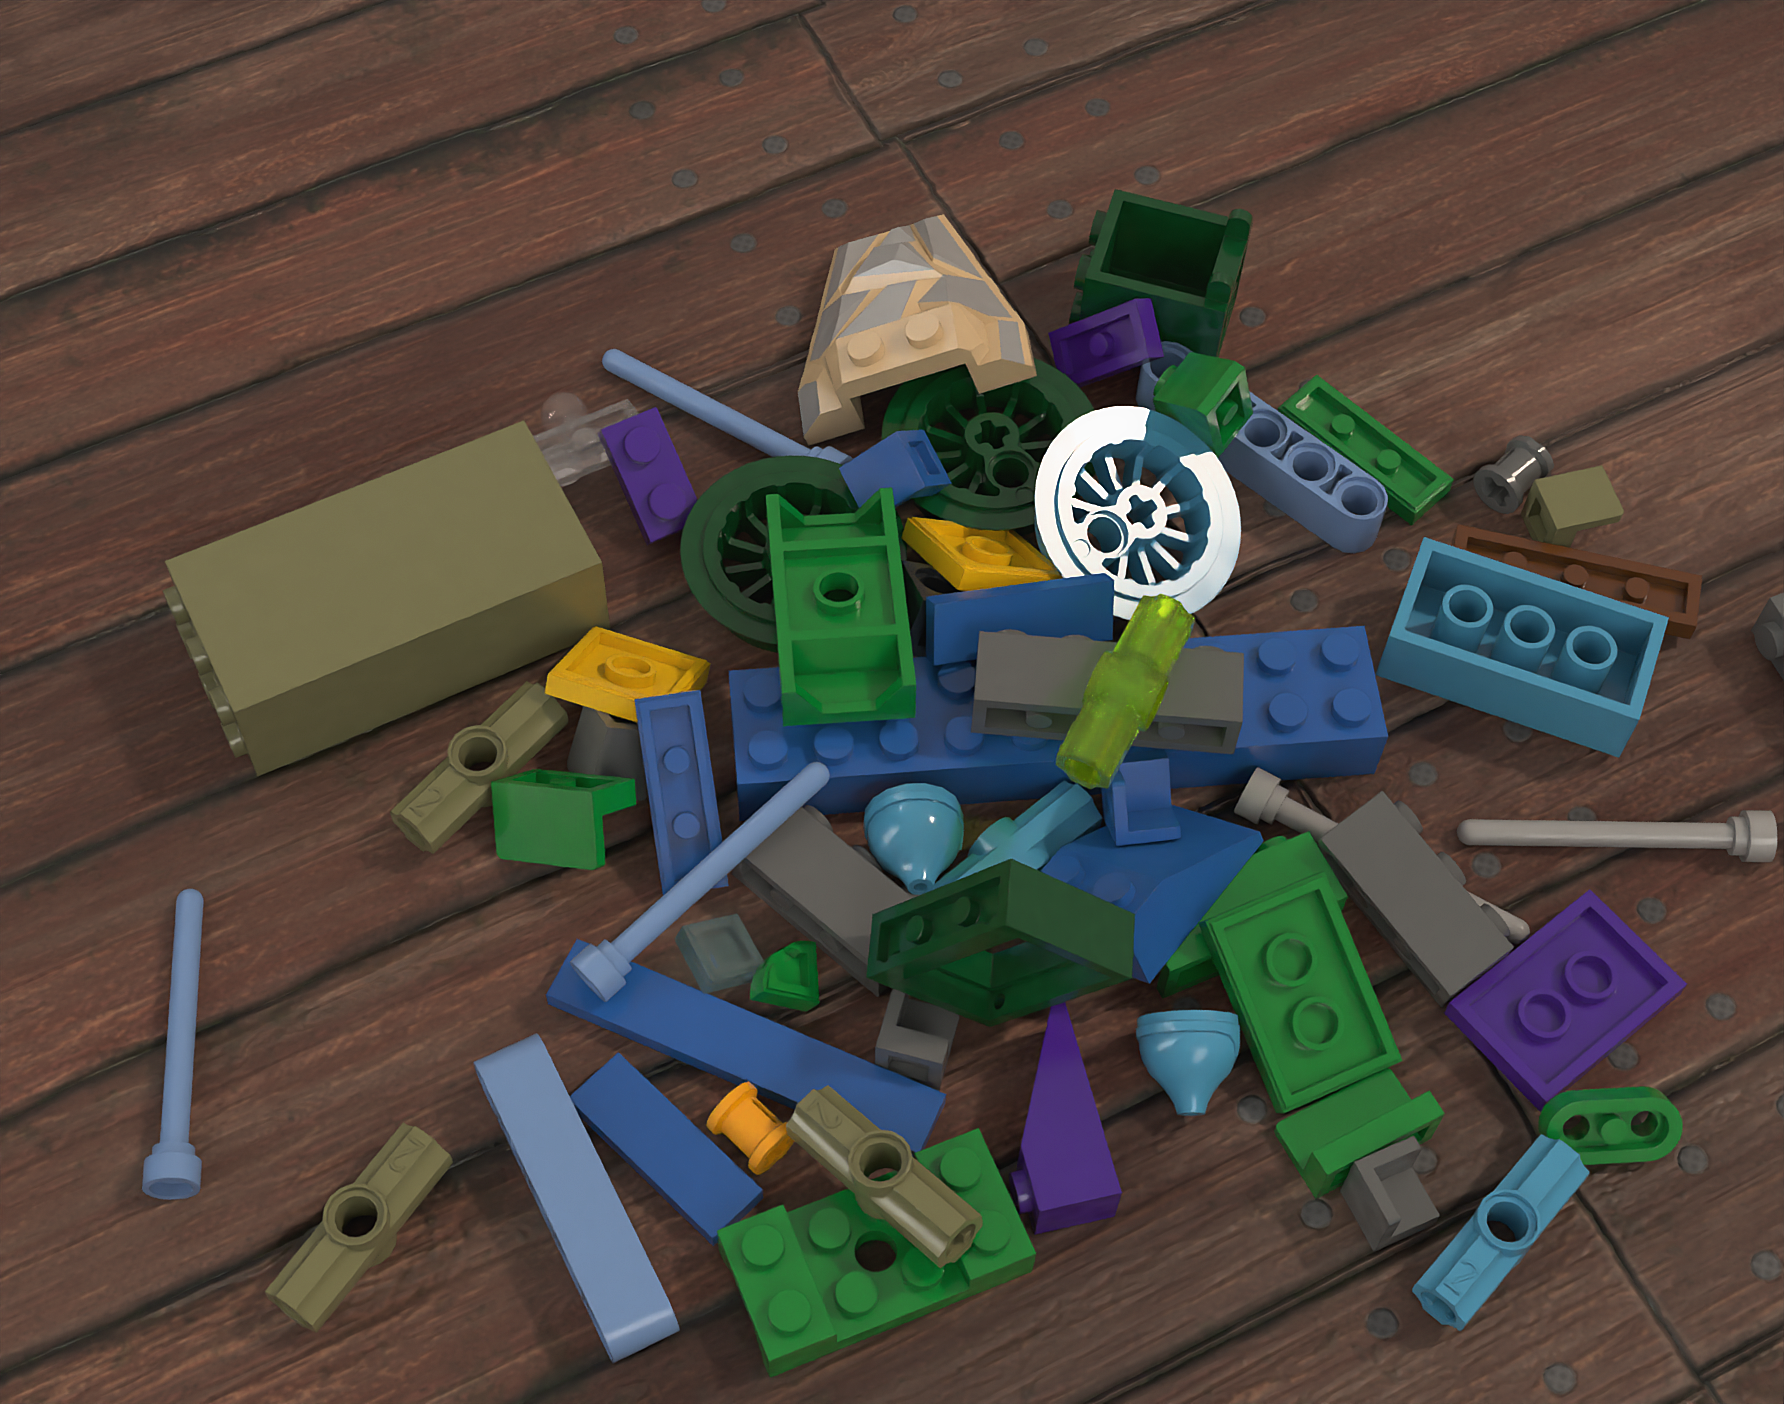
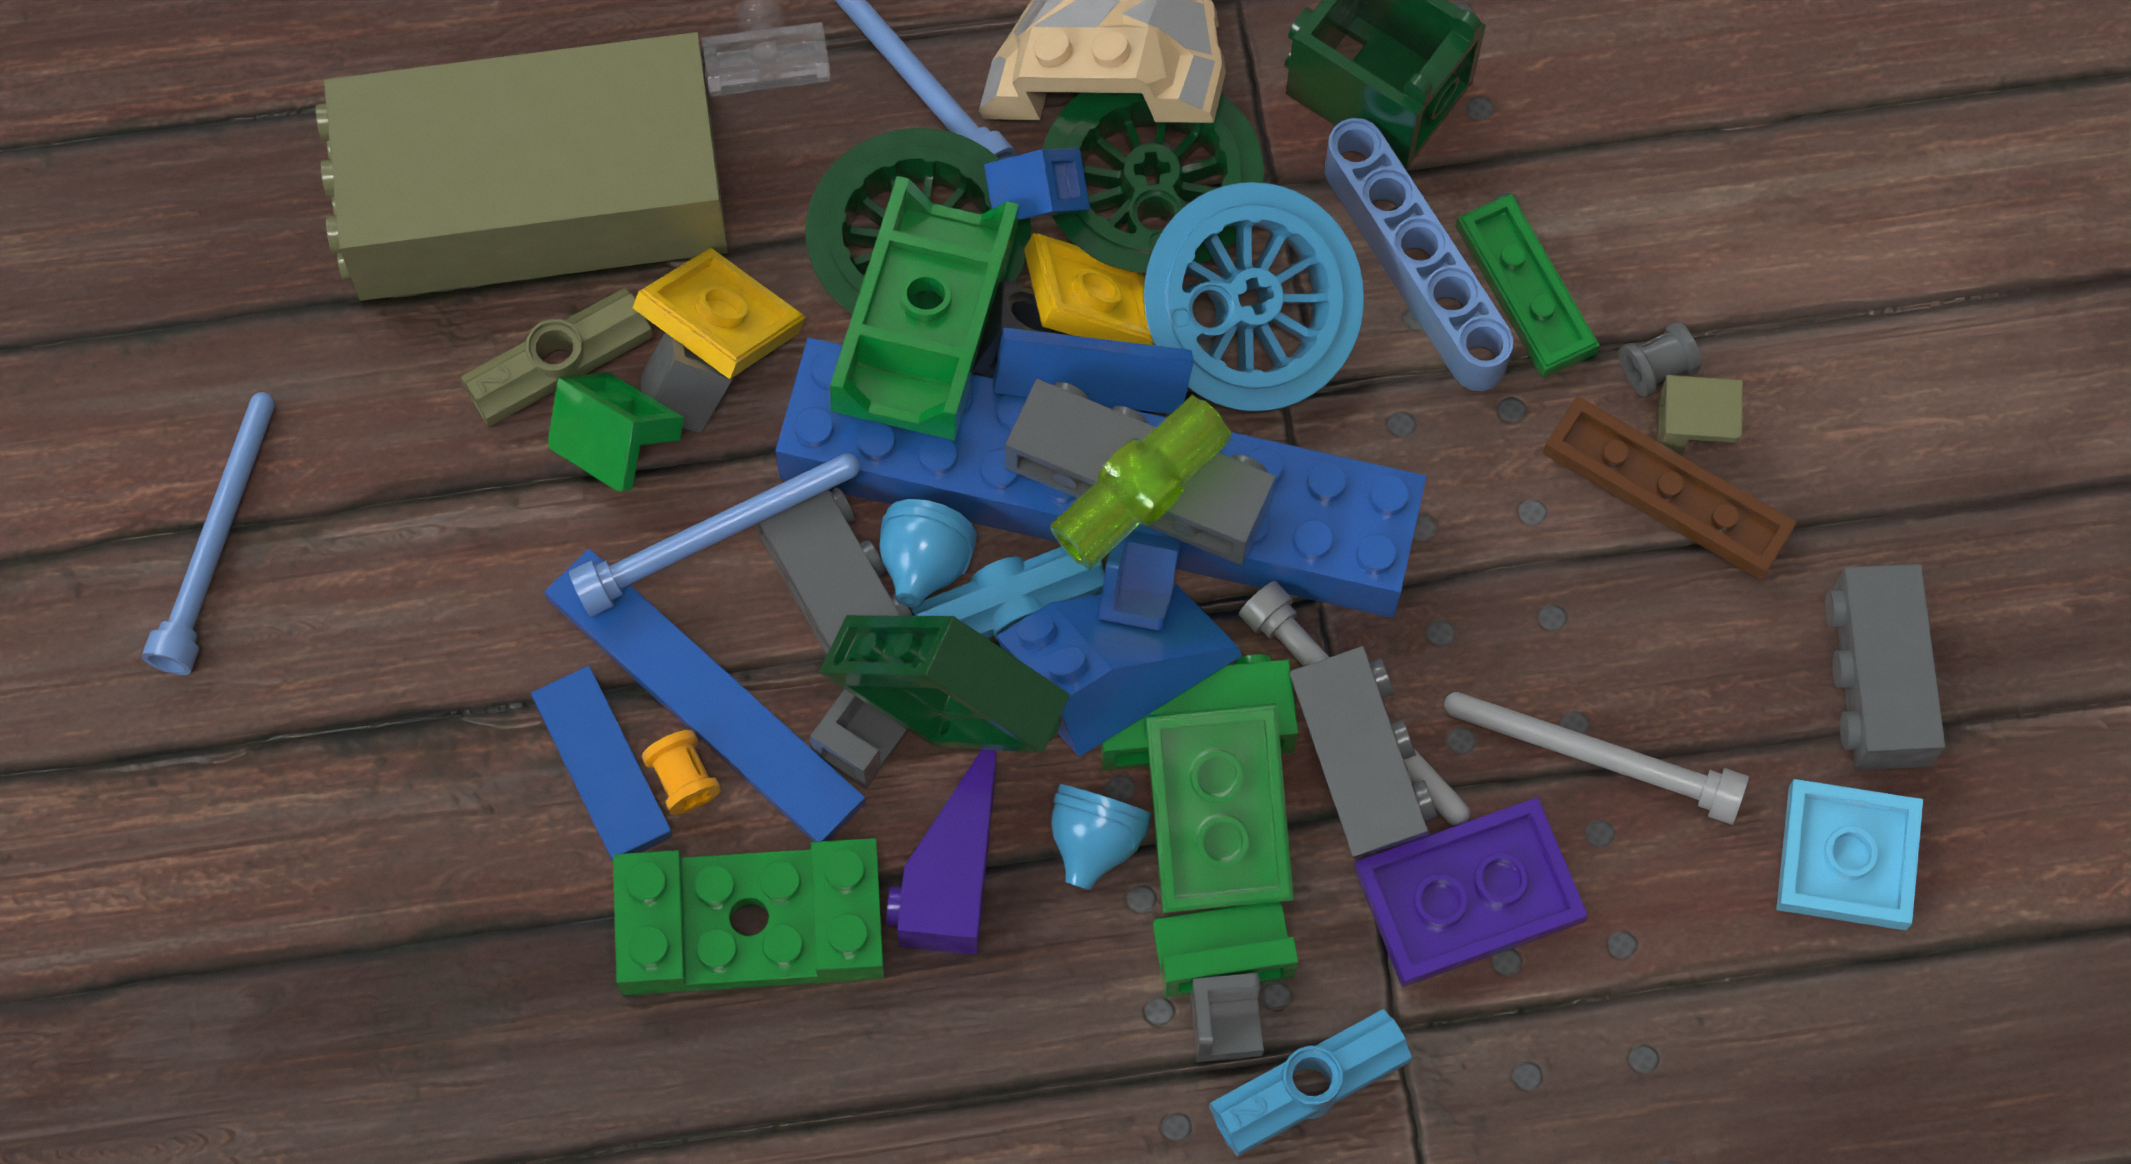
camera: 20 degrees right, 10 degrees up
(332, 1262) = (349, 725): olive piece -> none
(576, 1198) = (505, 783): medium blue beam -> none
(649, 474) = (813, 109): dark purple plate -> none
(678, 783) = (724, 431): blue tile -> none
(719, 952) = (712, 602): clear light blue tile -> none
(788, 977) = (765, 644): green tile -> none
(910, 1202) = (783, 884): olive piece -> none
(1107, 342) = (1301, 105): dark purple plate -> none
(1206, 397) = (1360, 202): green slope -> none
(1523, 647) = (1578, 540): dark azure brick -> none
(1606, 1127) = (1453, 1024): green plate -> none

